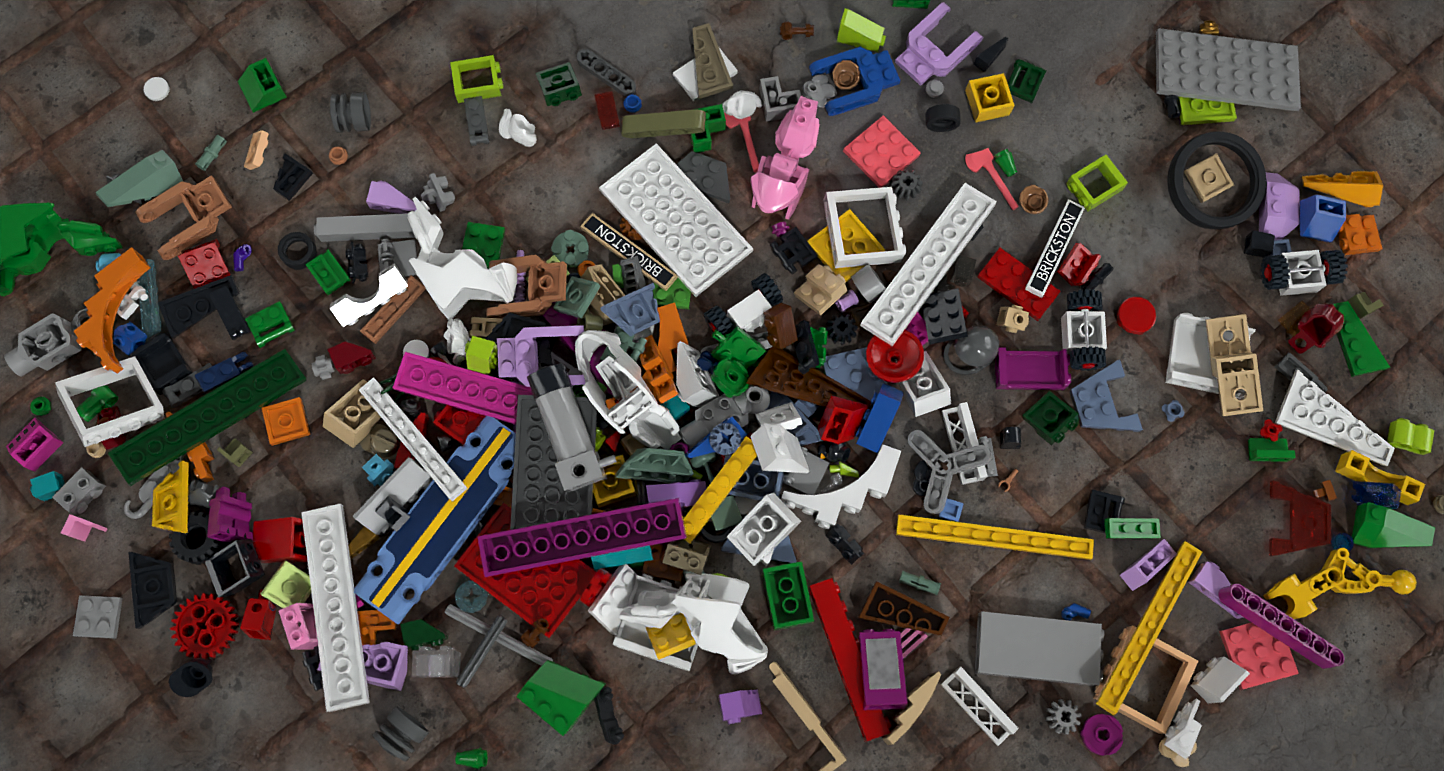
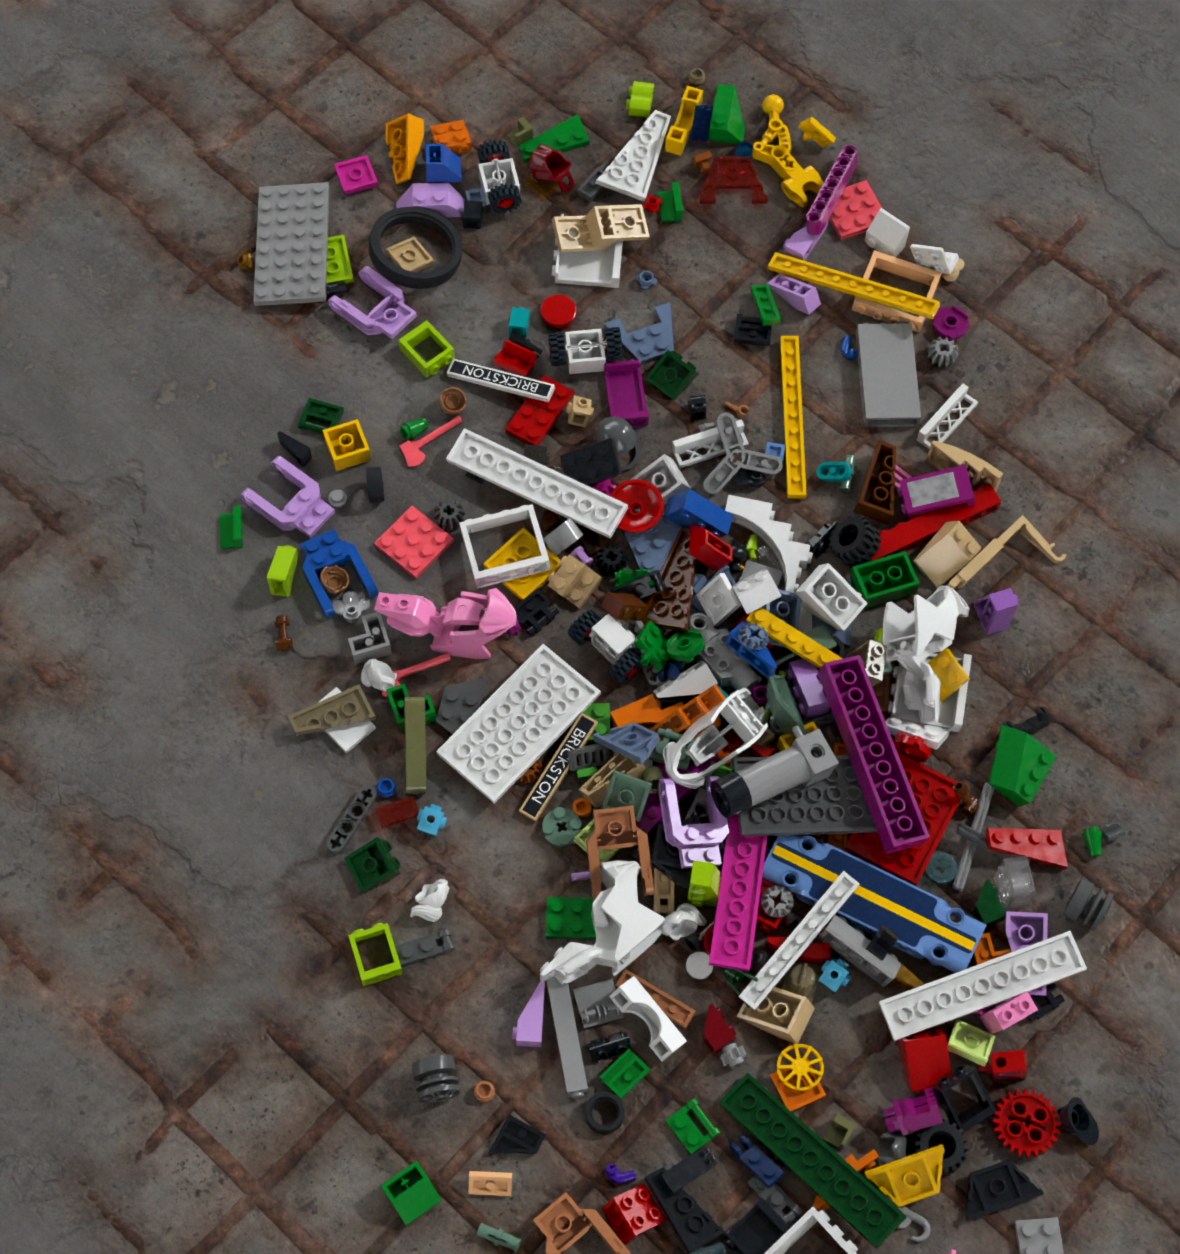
camera: 95 degrees left, 10 degrees down
(297, 423) = (800, 1066): none -> yellow wheel
(435, 194) = (517, 973): light grey hips -> none
(456, 435) = (781, 909): none -> light grey gear
(476, 692) = (1036, 844): none -> wing
(591, 134) = (425, 824): none -> medium azure brick
(810, 667) = (947, 553): none -> tan slope
(832, 570) = (855, 541): none -> black tyre
(920, 566) = (835, 470): none -> teal plate
(1125, 274) = (519, 321): none -> teal brick
(1136, 150) = (387, 317): none -> lavender plate
(1311, 136) = (356, 175): none -> dark pink plate
(1364, 620) = (817, 132): none -> yellow plate

